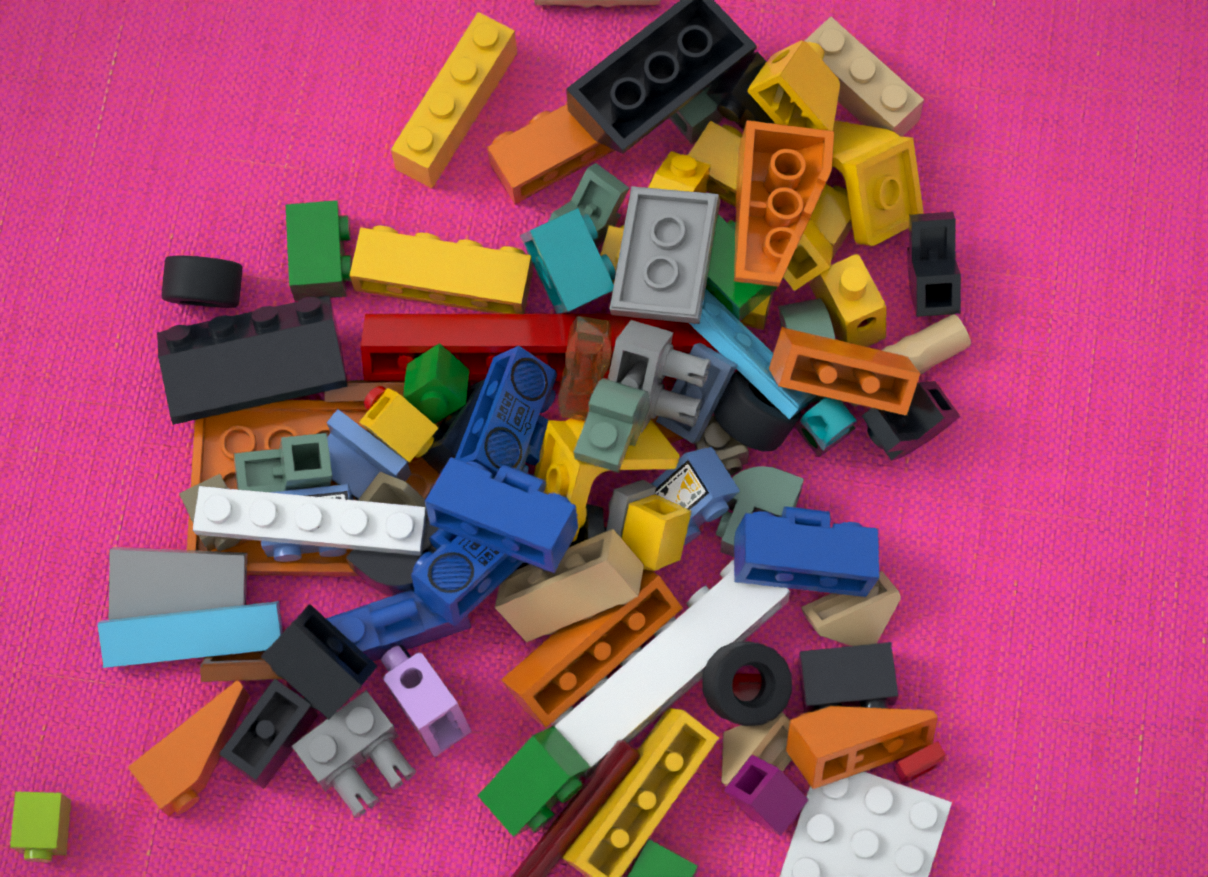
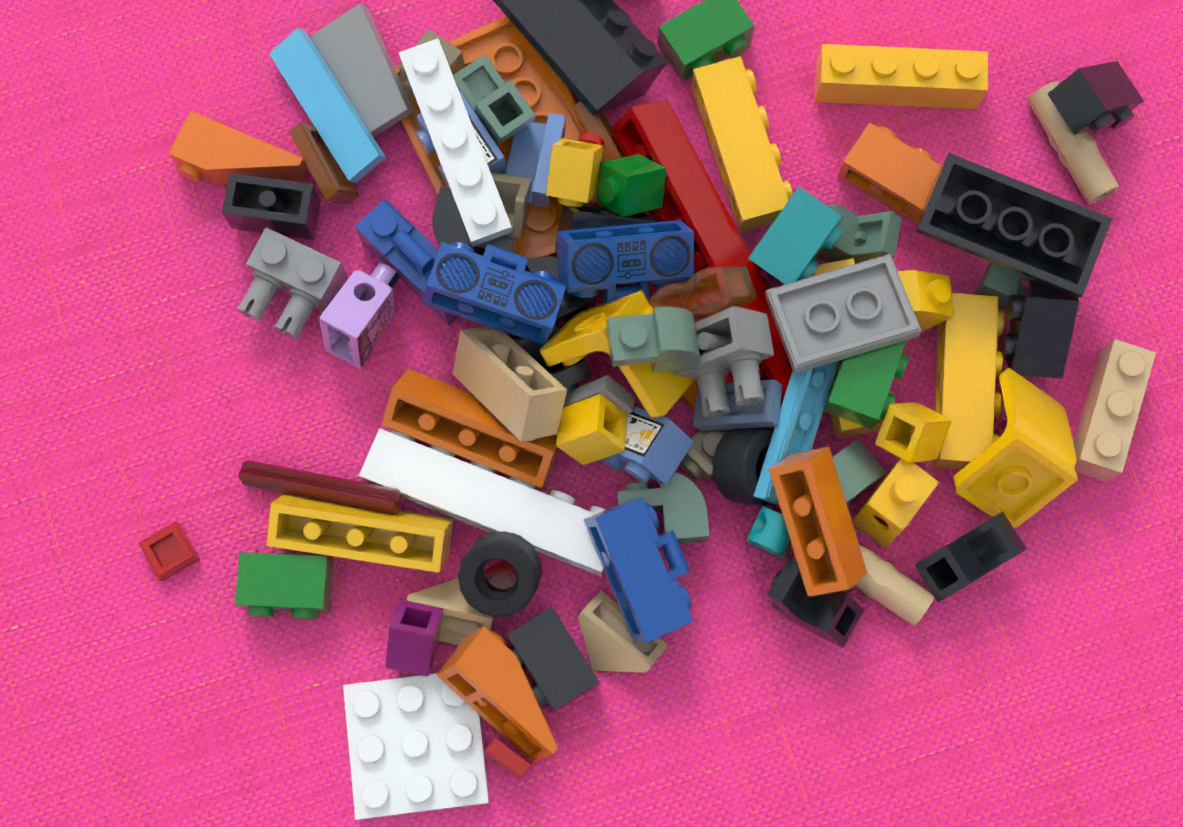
camera: 60 degrees right, 5 degrees up
(40, 825) = (119, 73): lime brick -> none
(319, 661) = (341, 210): black brick -> none
(503, 512) = (524, 277): blue piece -> none
(534, 781) = (331, 437): green brick -> none
(776, 193) = (958, 381): orange wedge -> none
(798, 87) = (1062, 355): yellow torso -> none

